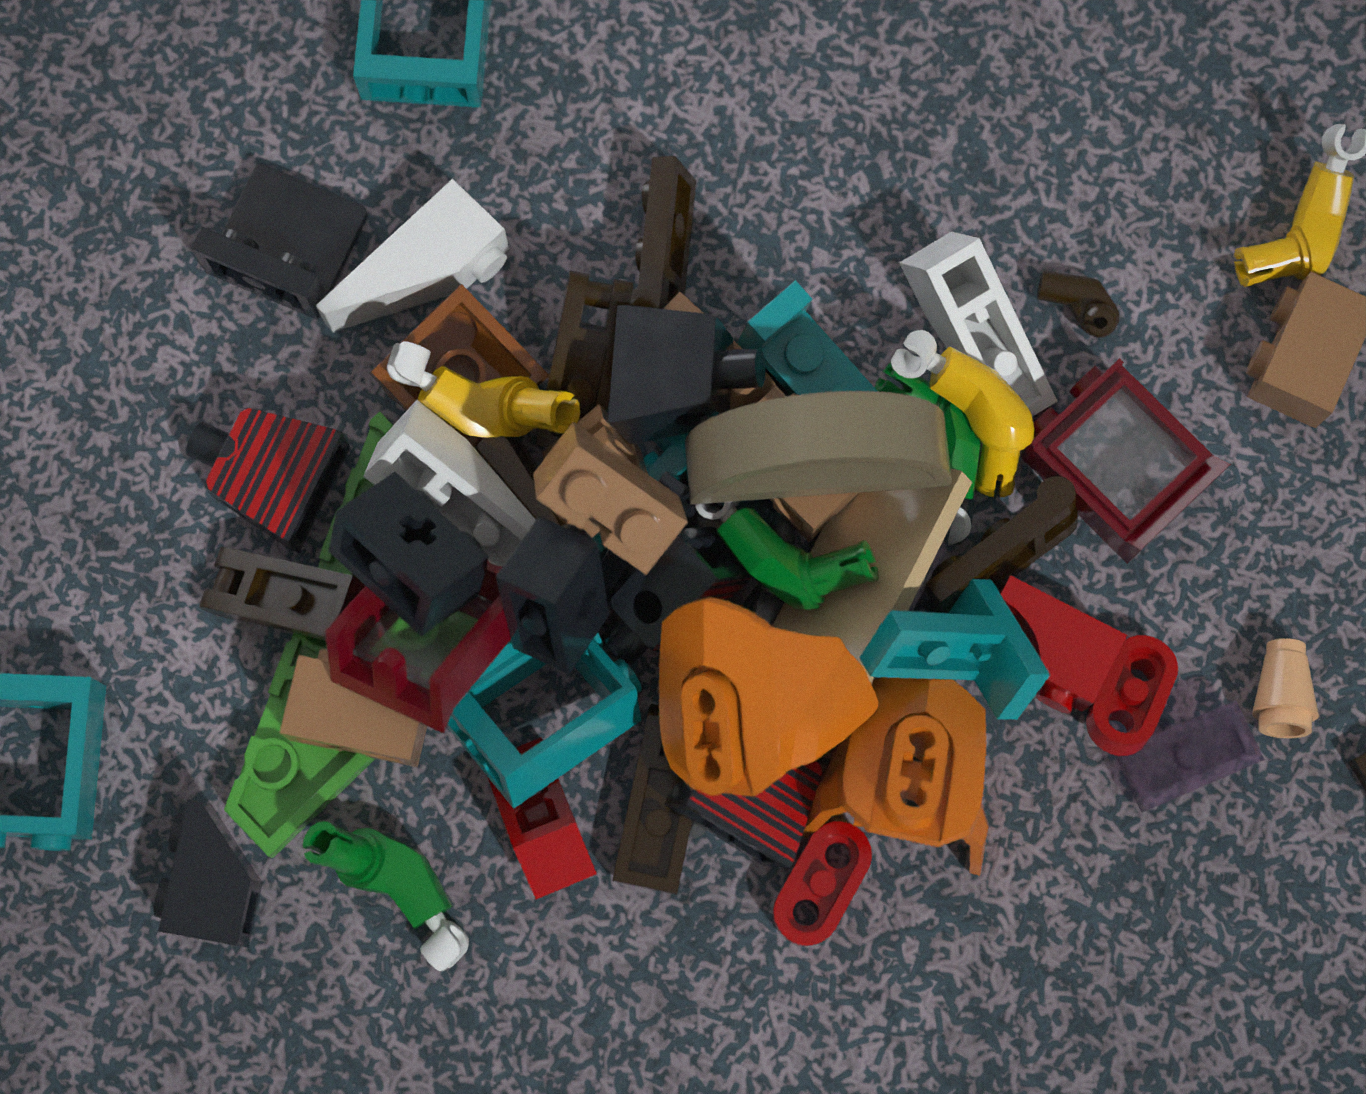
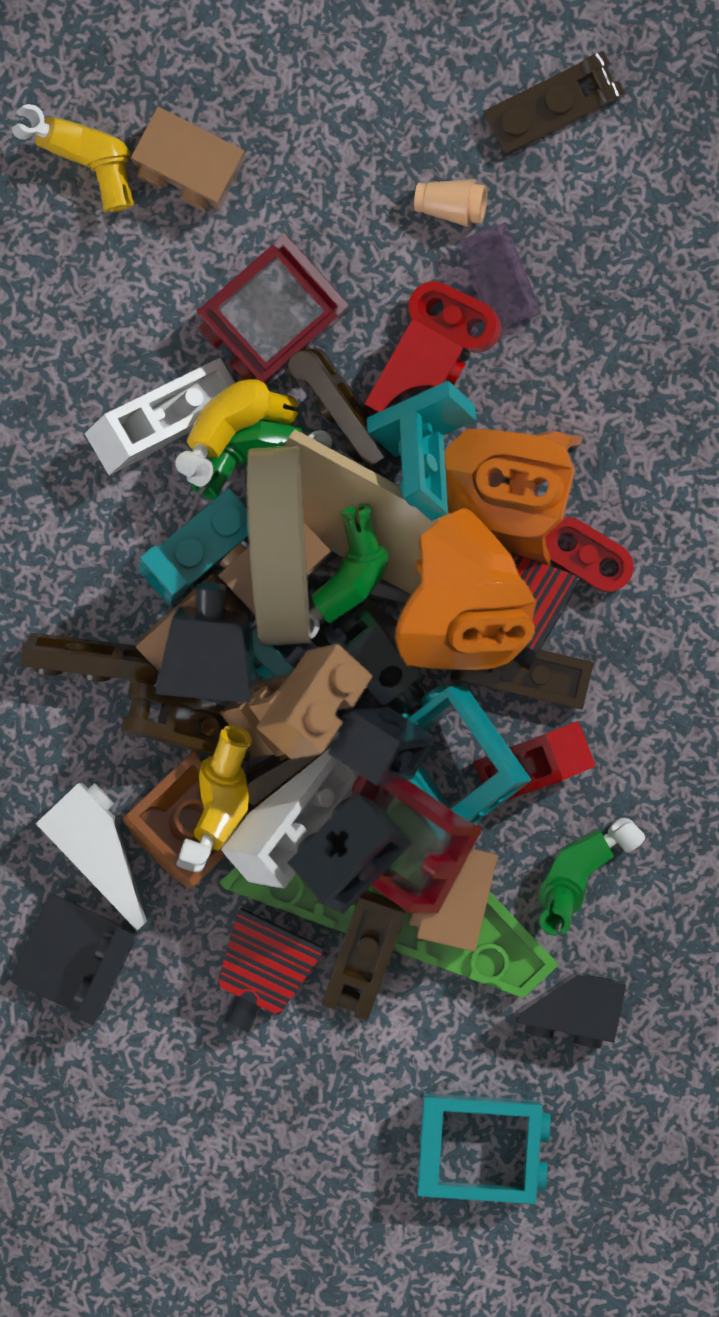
camera: 90 degrees left, 10 degrees up
(1085, 299) = (138, 330): dark brown arm -> none

